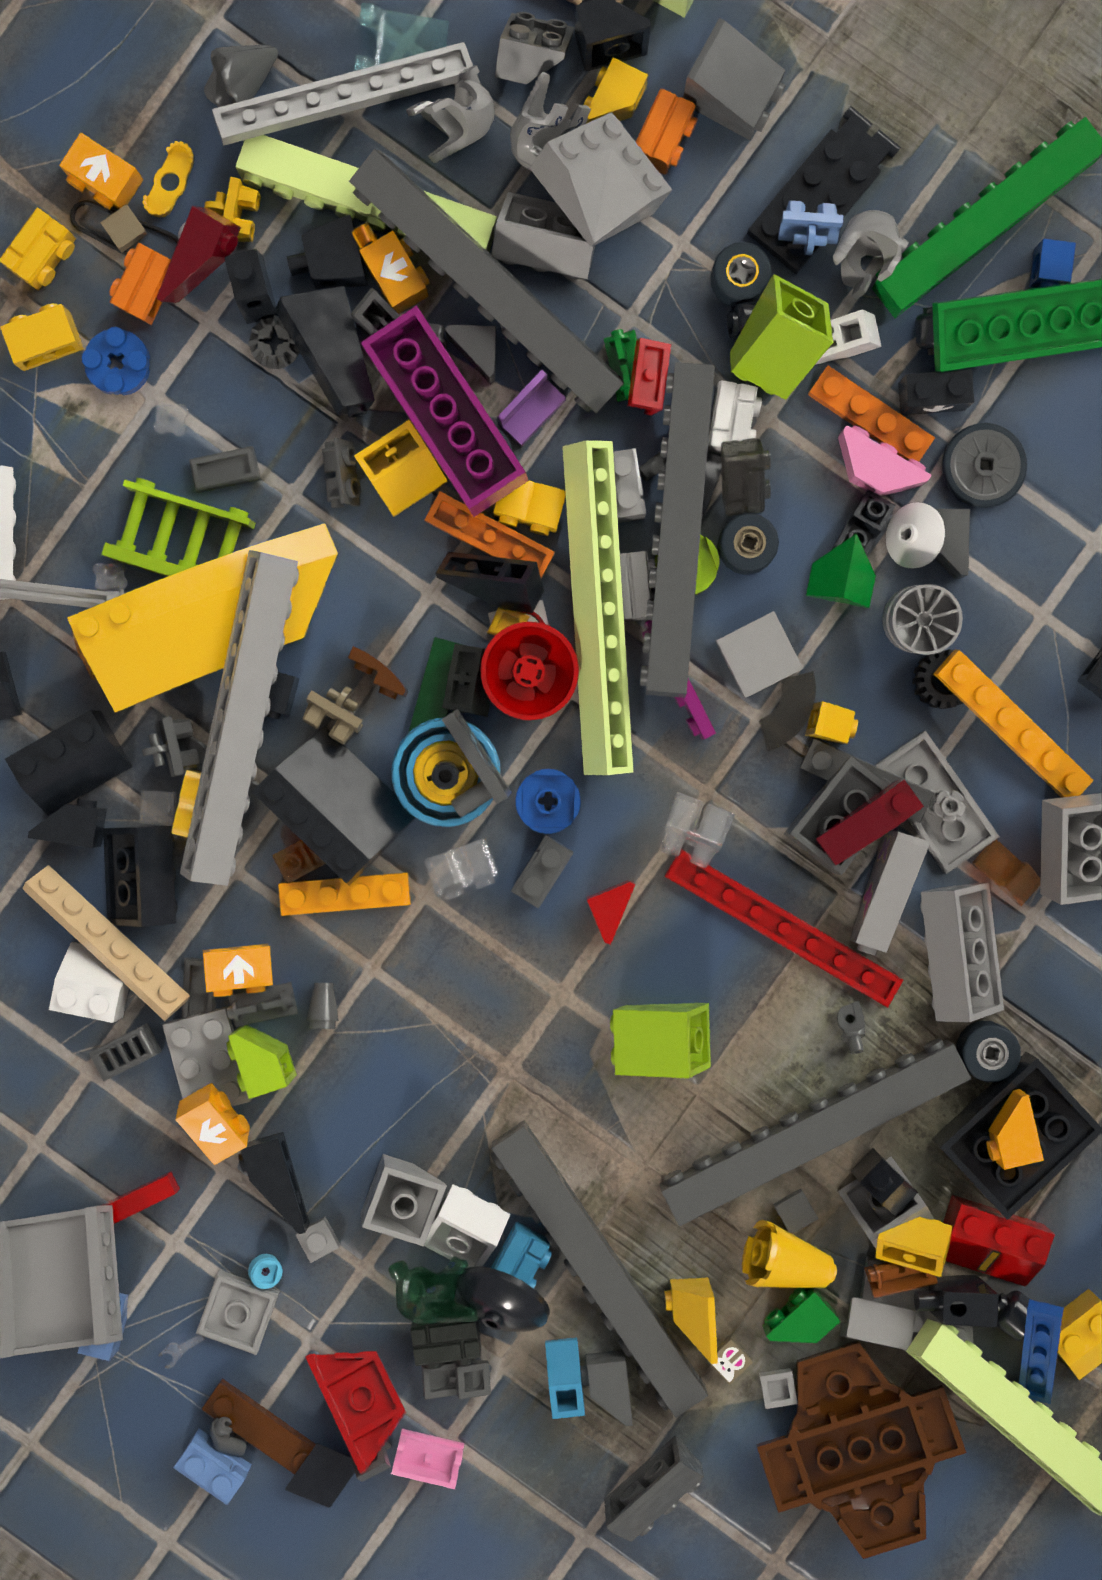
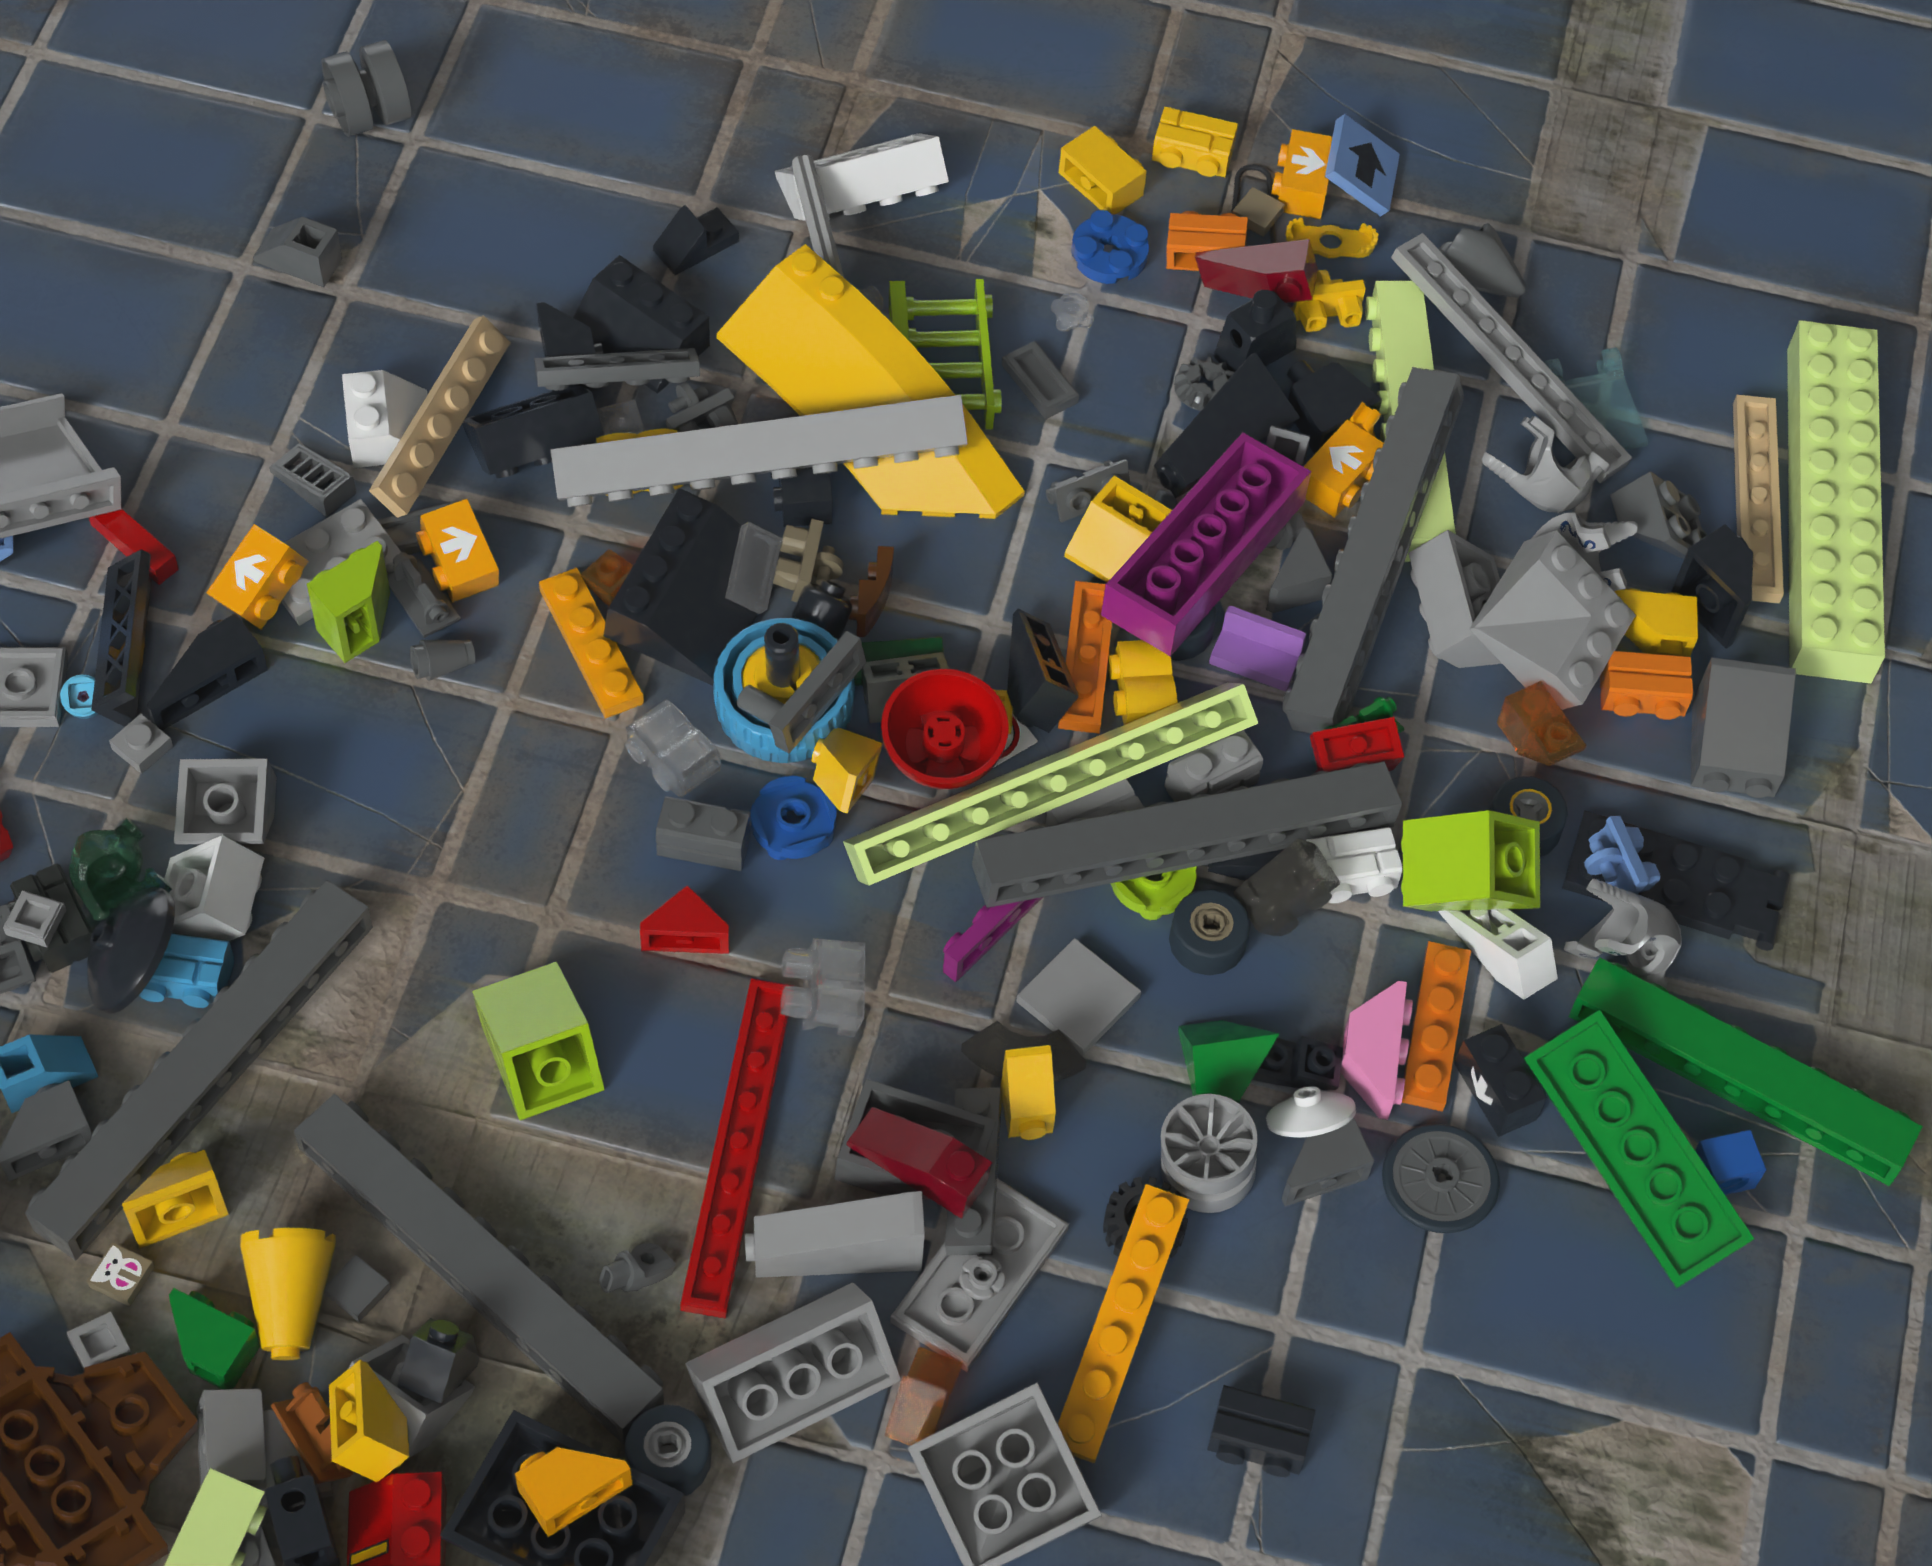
camera: 65 degrees right, 30 degrees down
(111, 123) = (1362, 165): none -> medium blue tile
(115, 798) = (632, 367): none -> dark grey plate
(229, 1233) = (122, 639): none -> black fence
(331, 756) = (753, 567): none -> clear tile
(387, 719) = (824, 607): none -> black head
(454, 1358) = (34, 918): none -> light grey tile
(527, 752) = (845, 766): none -> yellow slope
(677, 230) = (1538, 726): none -> clear orange slope

